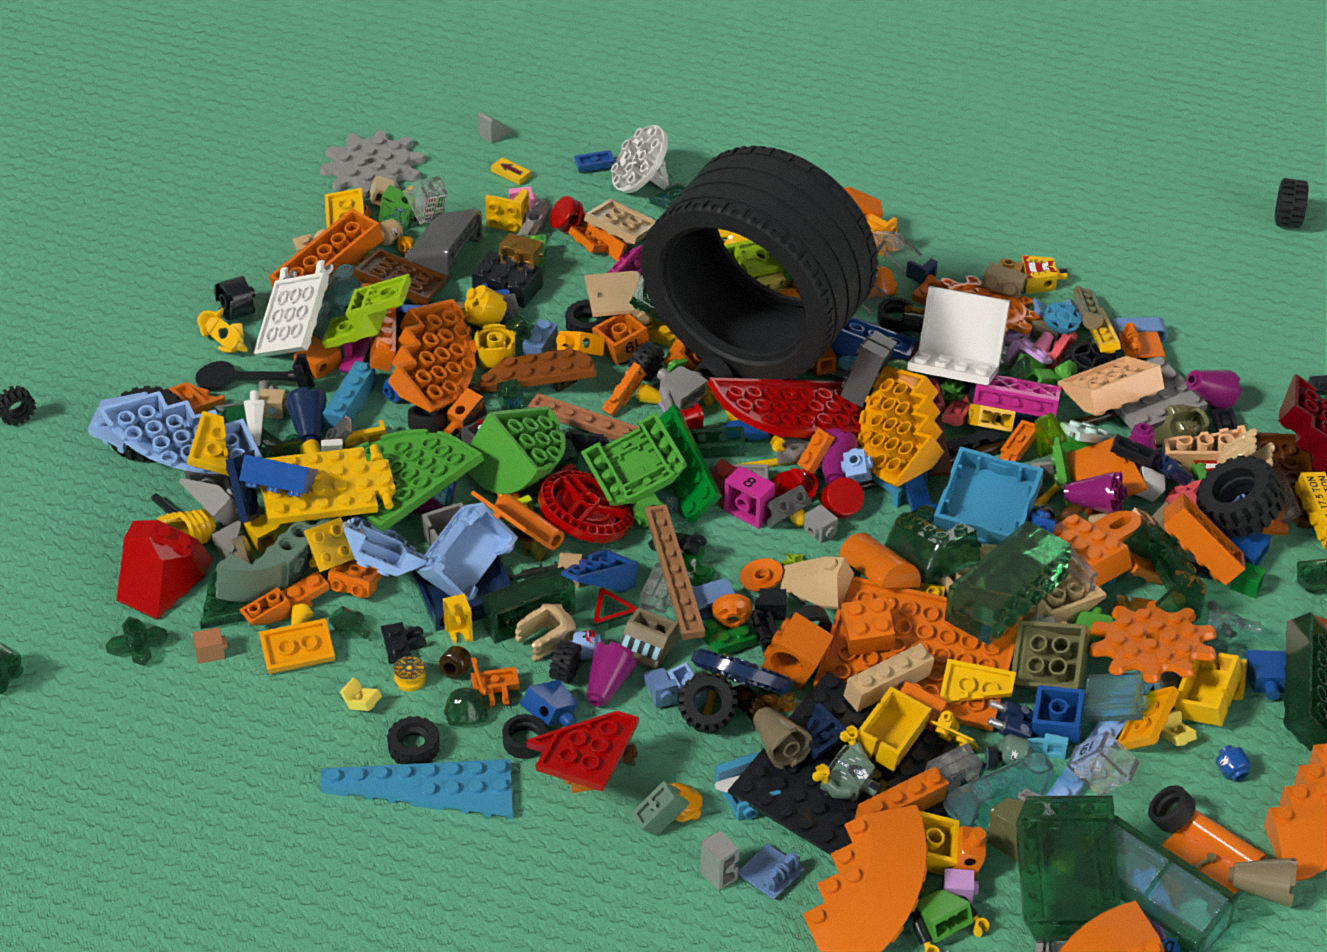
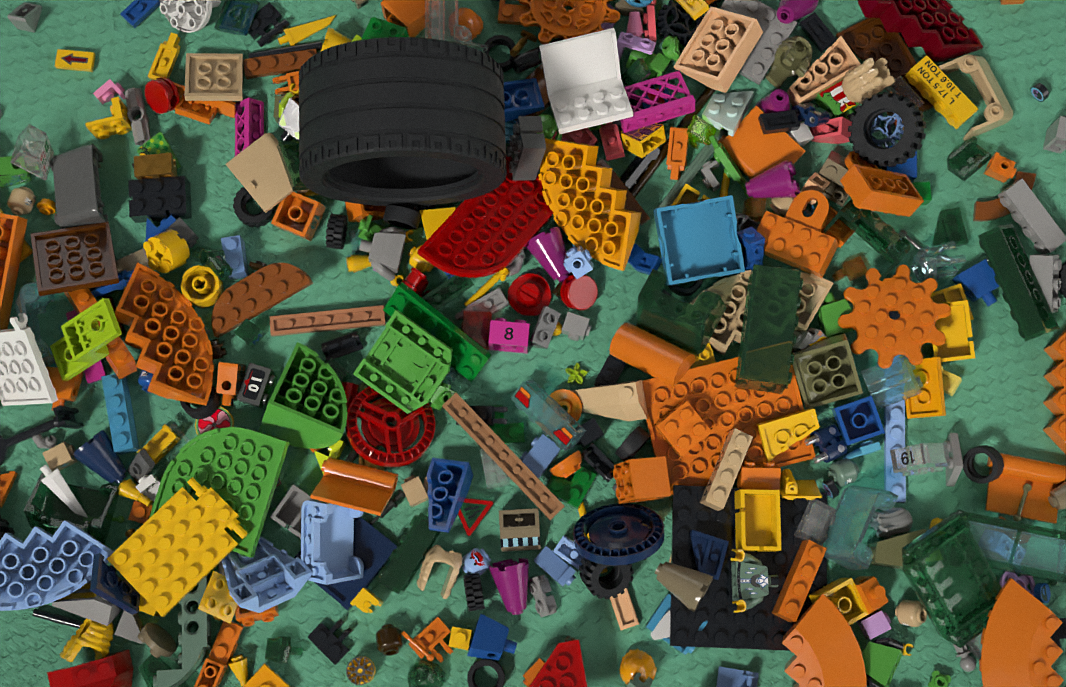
camera: 30 degrees left, 35 degrees up
(209, 444) = (59, 570): yellow wing -> none
(277, 475) = (141, 573): blue slope -> none
(518, 688) = (460, 638): none -> yellow brick
(575, 340) = (272, 247): light orange torso -> none
(594, 196) = (165, 58): none -> yellow hinge
(624, 390) = (338, 275): orange hinge -> none
(632, 695) = (544, 604): none -> light grey hinge
(703, 753) = (624, 610): none -> light nougat tile
(713, 414) = (418, 262): none -> yellow head
(741, 565) = (548, 415): none -> clear light blue brick
(815, 450) = (533, 259): orange plate -> none
(1005, 893) = (910, 613): none -> tan head
(1082, 571) = (808, 275): clear tile -> none
(1140, 793) = (955, 458): none -> light grey wing
(1233, 763) = (999, 389): blue head -> none
(1271, 620) = (950, 228): none -> clear green wing

